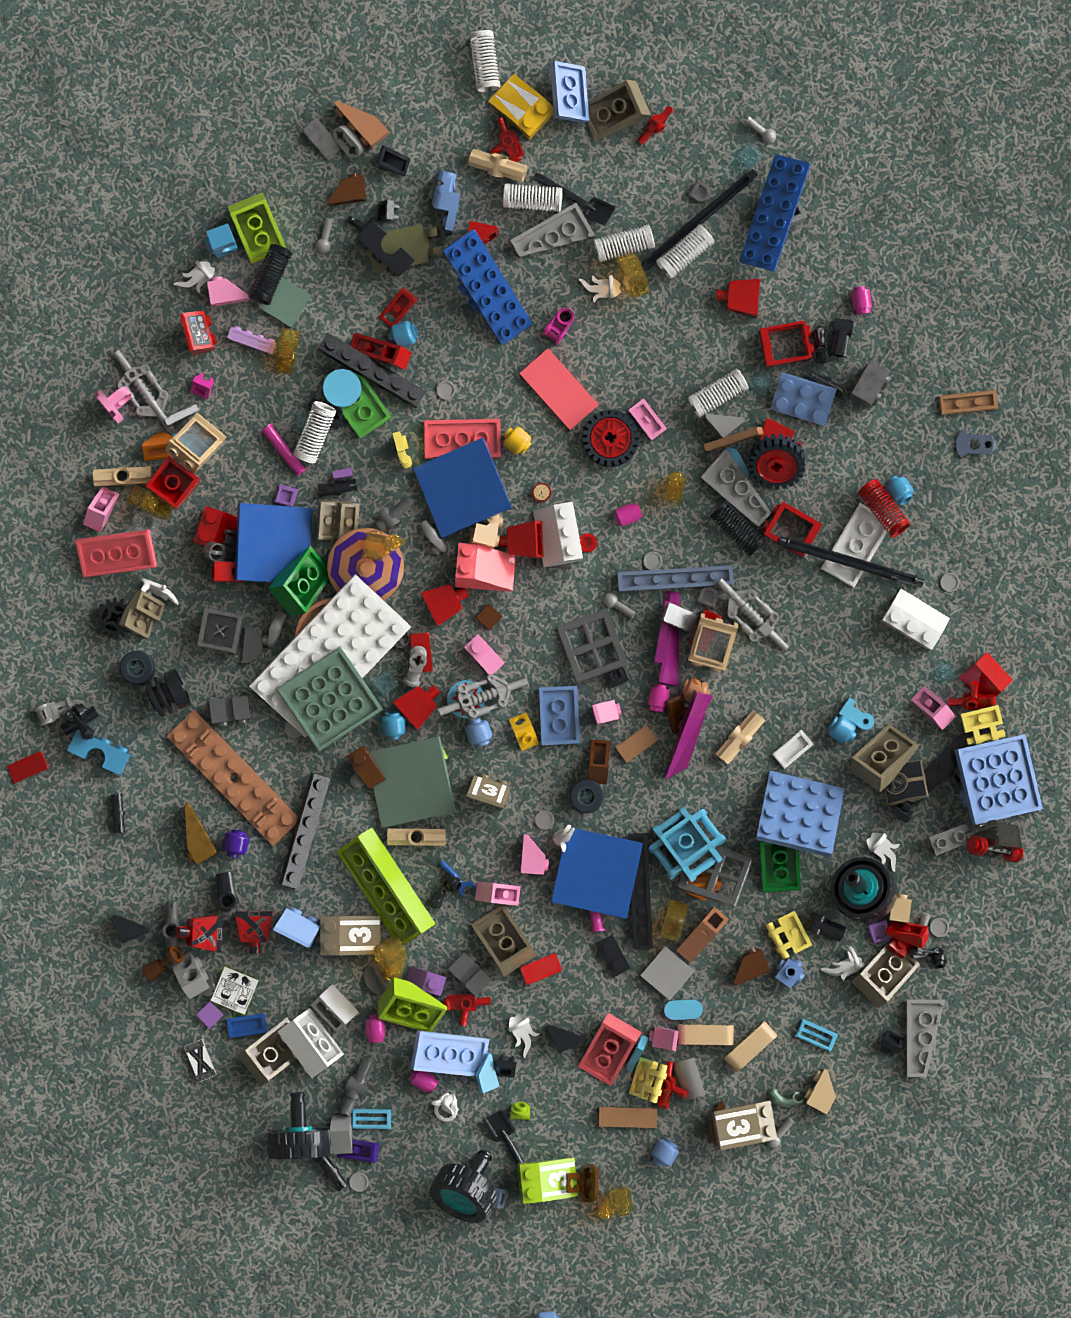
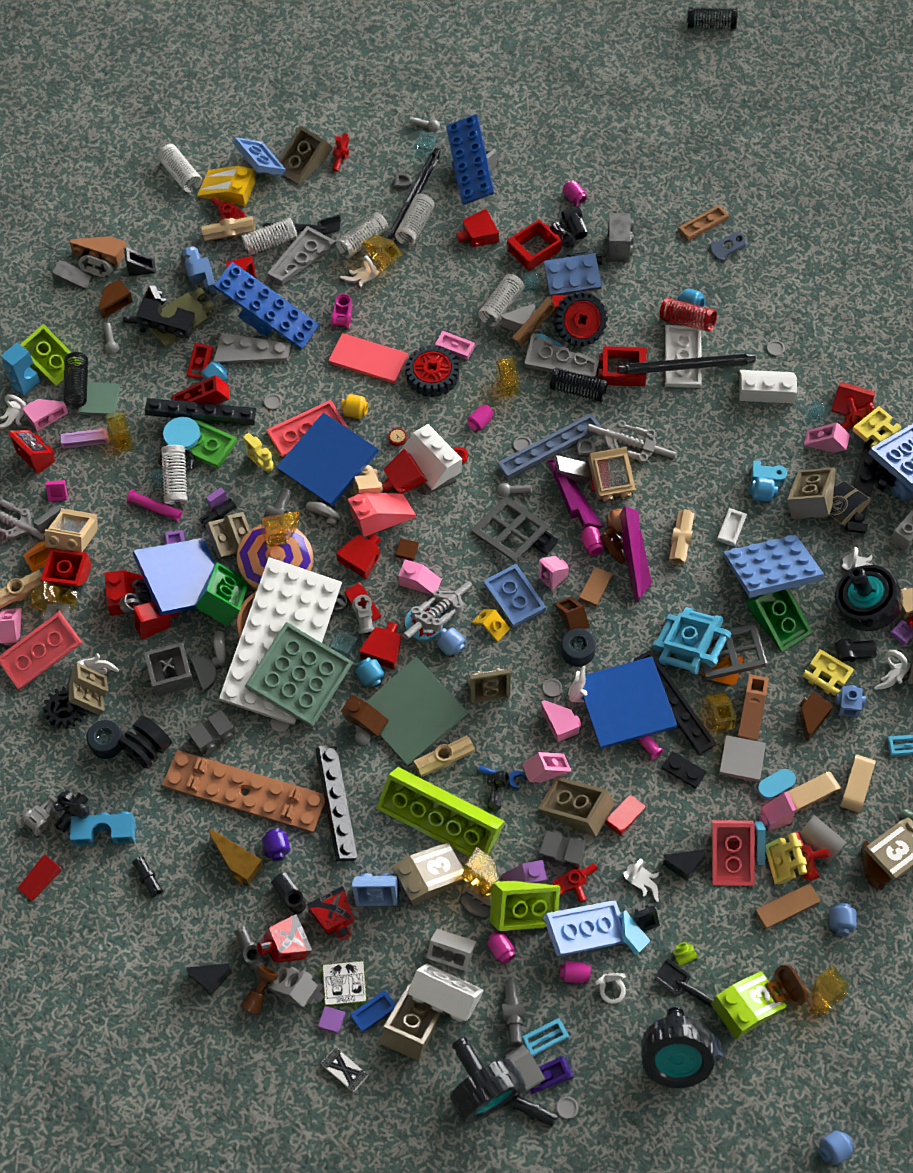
camera: 25 degrees left, 25 degrees down
(449, 318) = (250, 350): none -> light grey wing

